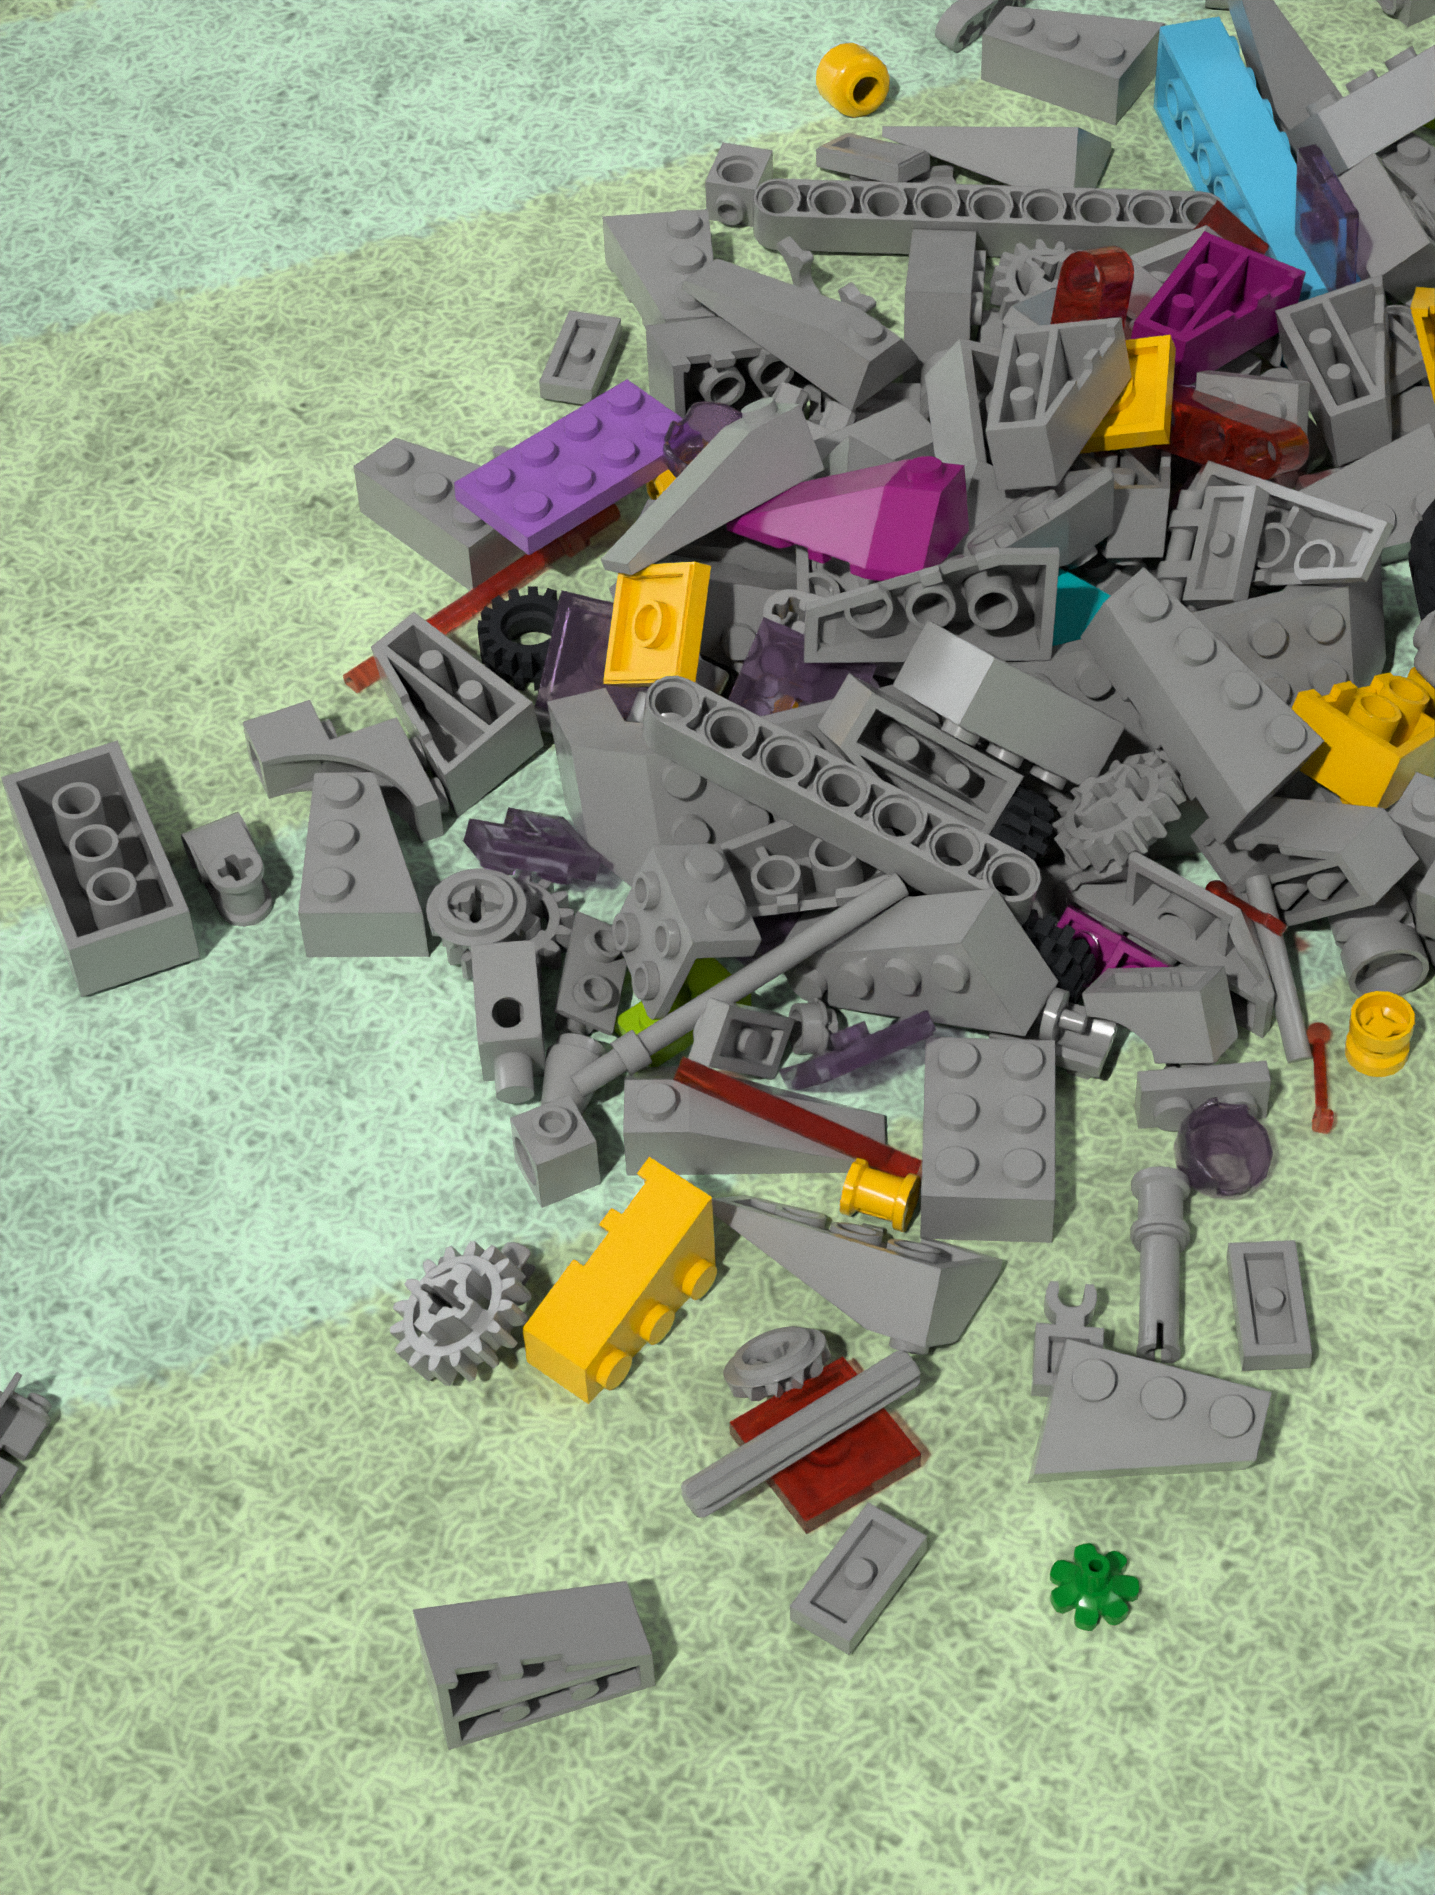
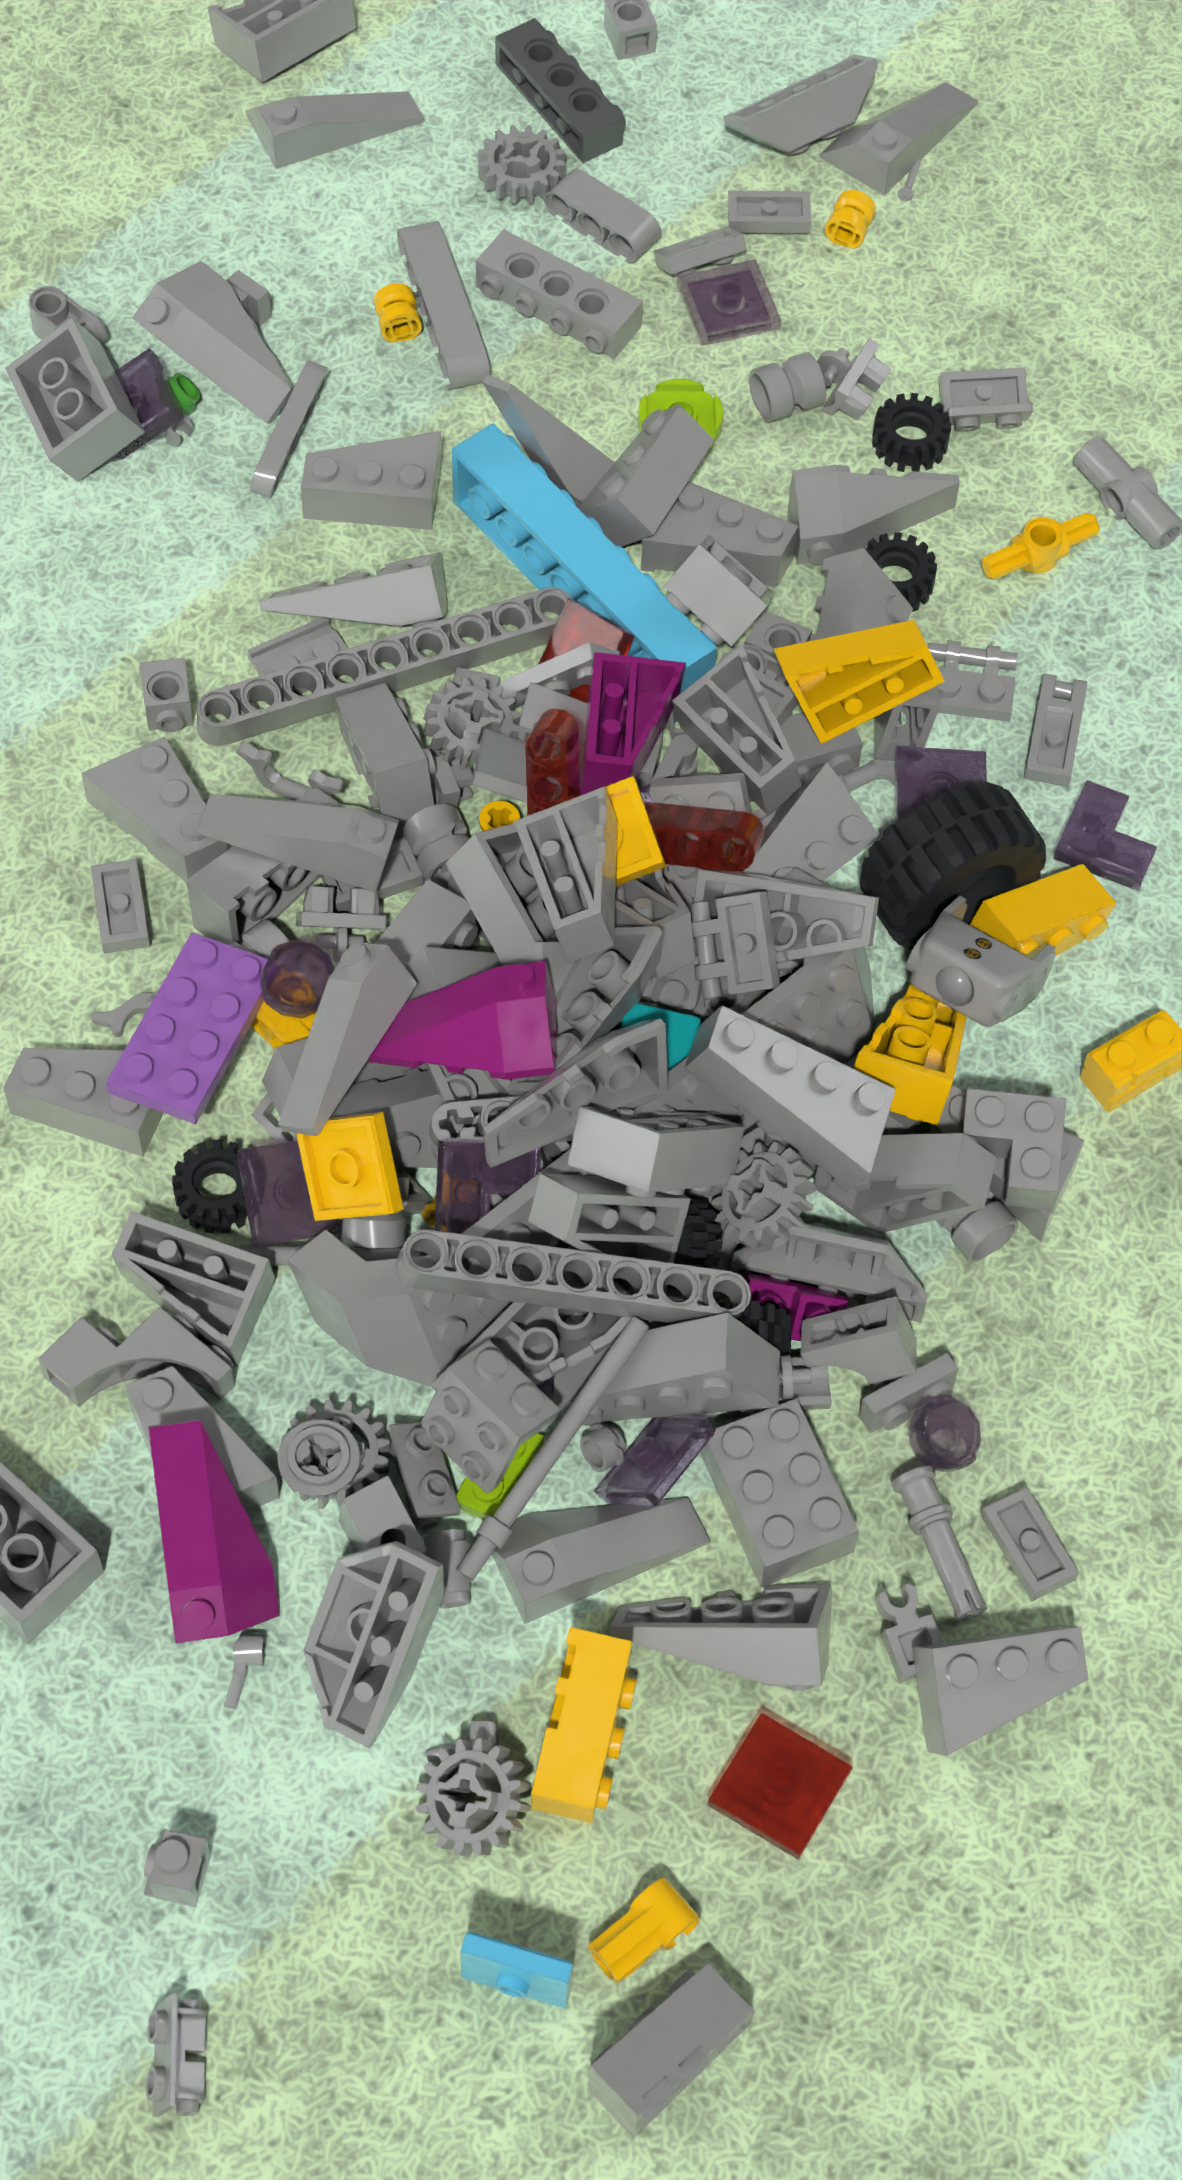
camera: 30 degrees left, 10 degrees up
(91, 1248) = (177, 1868): none -> light grey brick
(230, 869) = (87, 1481): light grey piece -> none
(300, 1085) = (247, 1652): none -> light grey hand
(308, 955) = (212, 1555): none -> magenta wedge
(401, 1498) = (516, 1970): none -> medium azure plate
(440, 1104) = (371, 1636): none -> light grey wedge
(498, 584) = (134, 1197): clear red bar -> none
(534, 844) = (327, 1380): clear purple plate -> none
(555, 1150) = (472, 1632): light grey brick -> none
(597, 1526) = (649, 1926): none -> yellow piece
(740, 1038) = (568, 1488): light grey plate -> none
(776, 1362) = (707, 1729): light grey gear -> none
(794, 1118) = (638, 1536): clear red bar -> none
(800, 1434) = (768, 1791): light grey axle -> none
(852, 80) = (207, 559): yellow head -> none
(858, 1578) = (855, 1881): light grey plate -> none
(872, 158) = (261, 632): light grey tile -> none
(880, 1194) = (722, 1568): yellow bush -> none
(1093, 1587) = (1011, 1814): green plant -> none
(1267, 920) = (849, 1223): clear red hinge -> none
(1274, 949) = (908, 1253): light grey bar -> none
(1318, 1036) = (994, 1374): clear red hinge -> none
(1325, 219) = (684, 614): clear purple plate -> none
(1379, 1033) = (1010, 1282): yellow wheel -> none

